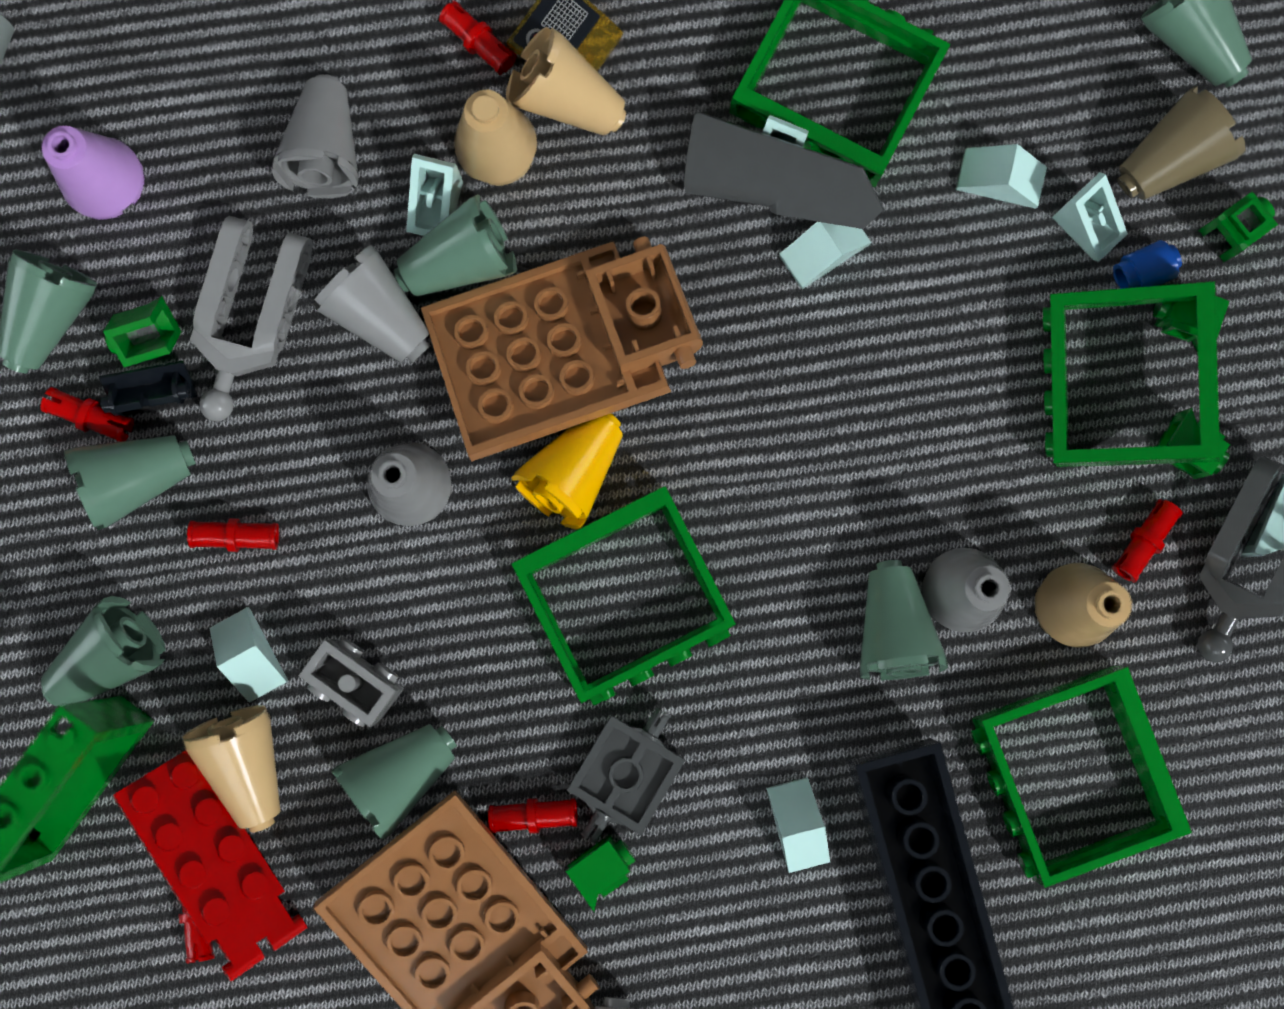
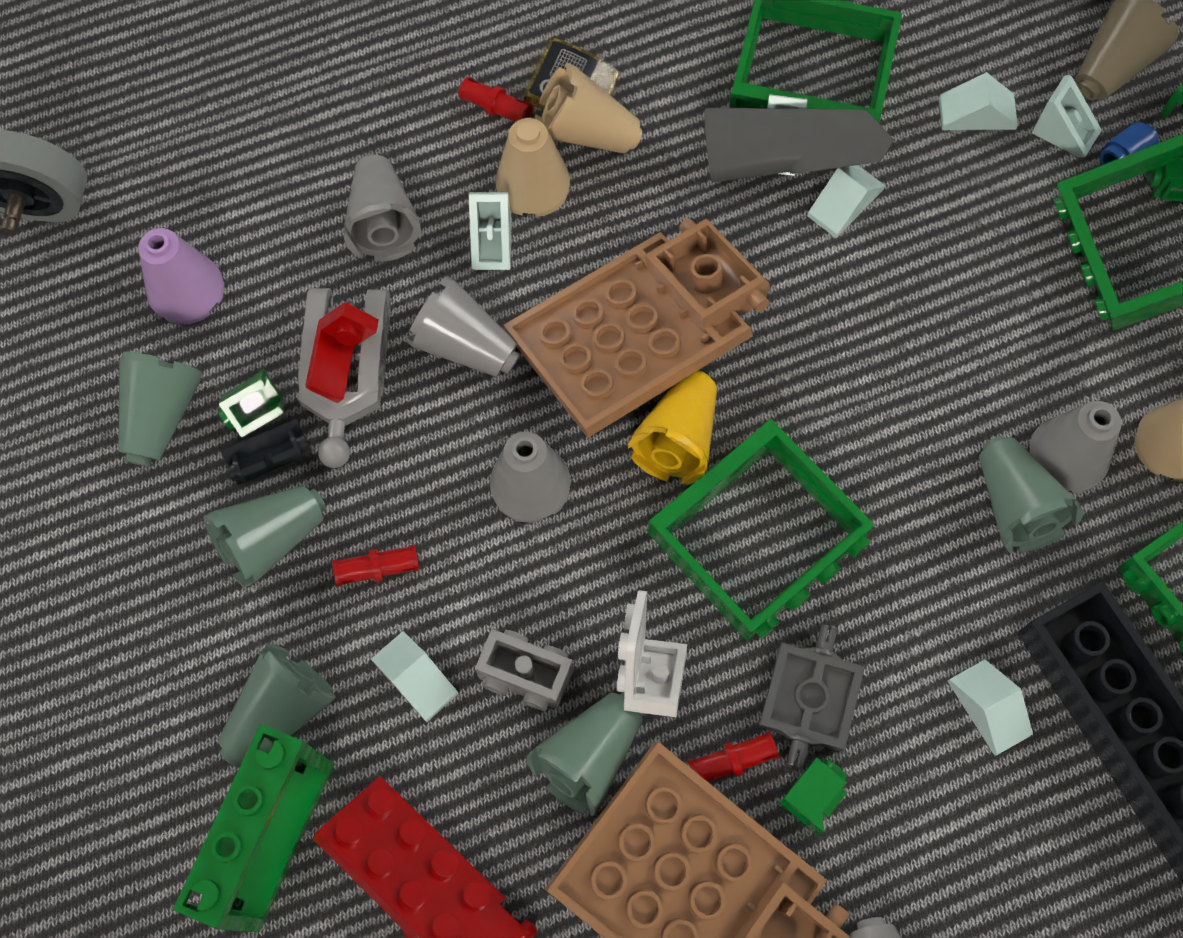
camera: 10 degrees left, 15 degrees down
(86, 414) = (211, 489): red pin -> none
(233, 301) = (333, 349): none -> red bracket
(239, 765) = (435, 779): tan cone -> none
(457, 252) = (525, 270): sand green cone -> none
(471, 711) = (652, 667): none -> white bracket

